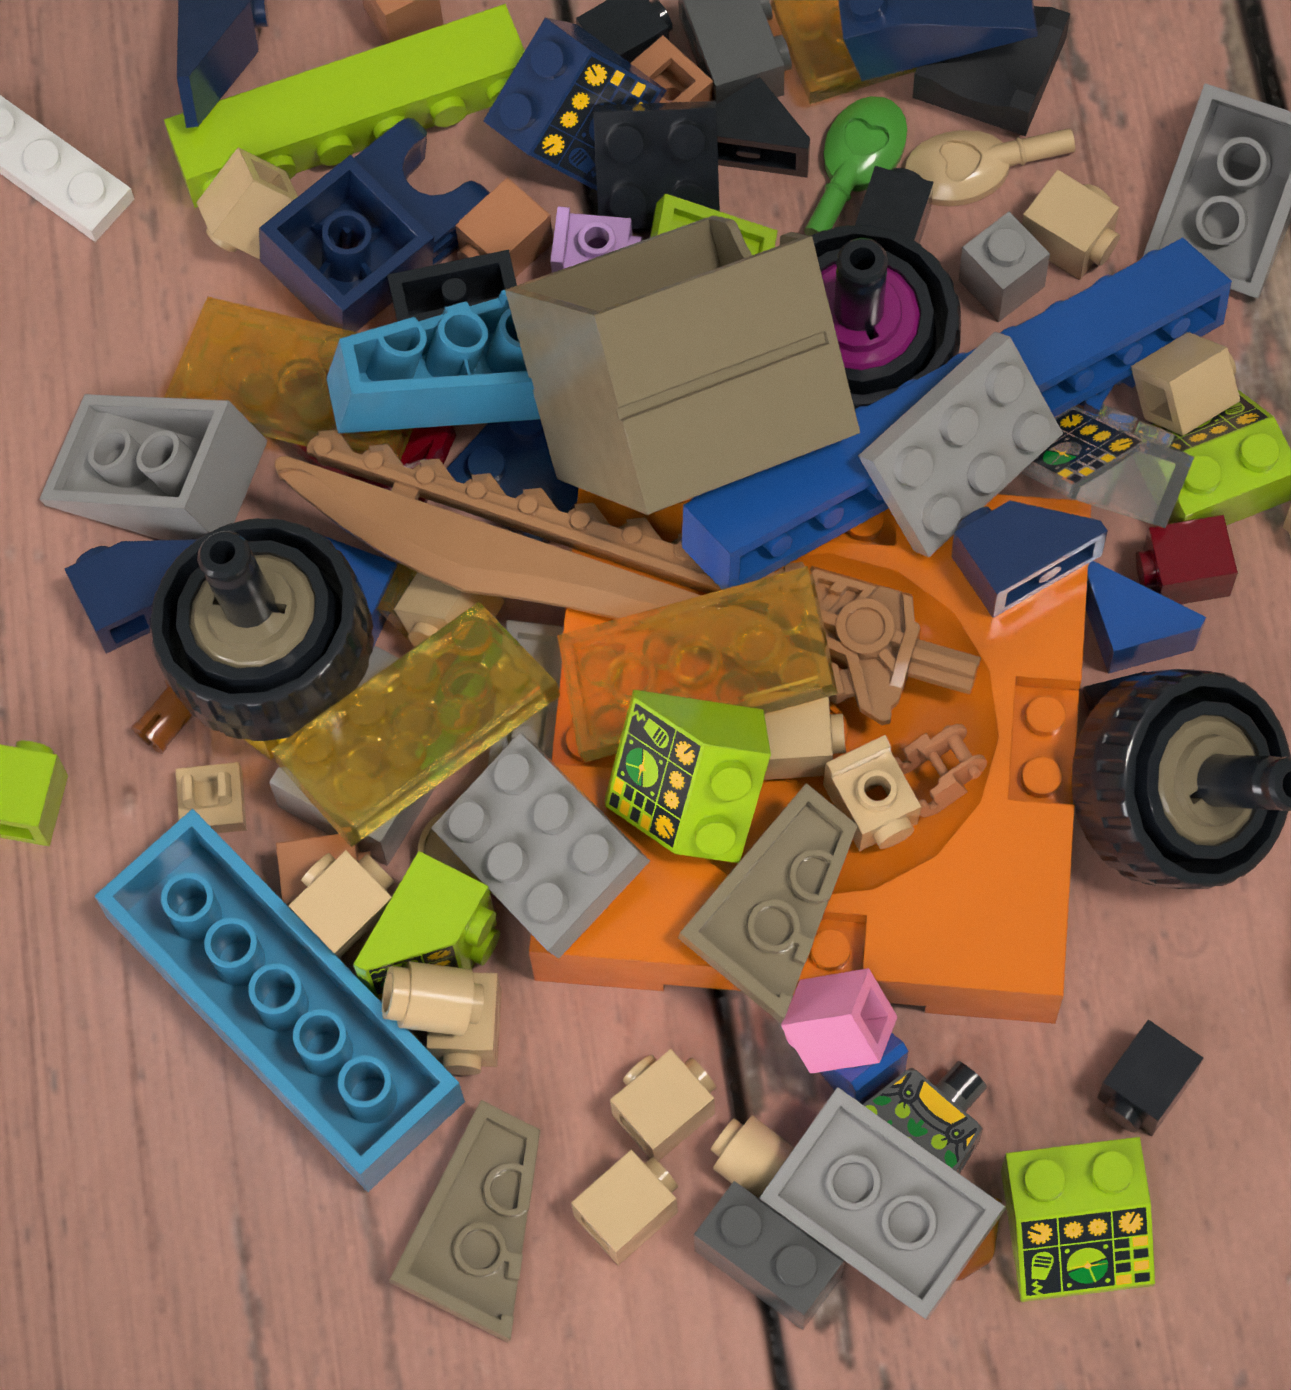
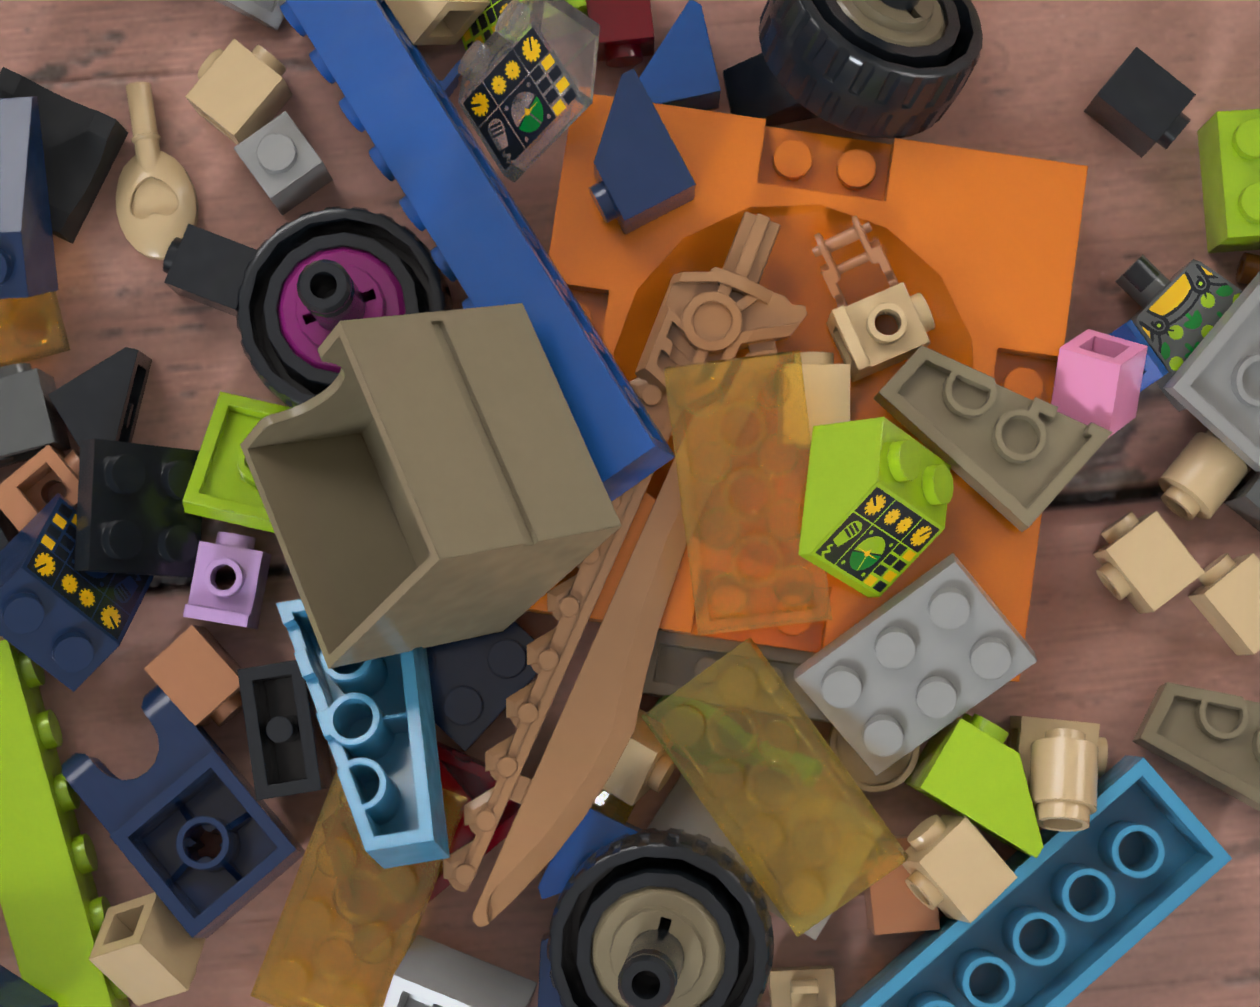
camera: 90 degrees left, 15 degrees up
(860, 138) = (135, 305): bright green piece -> none
(961, 443) = (523, 206): light grey plate -> none

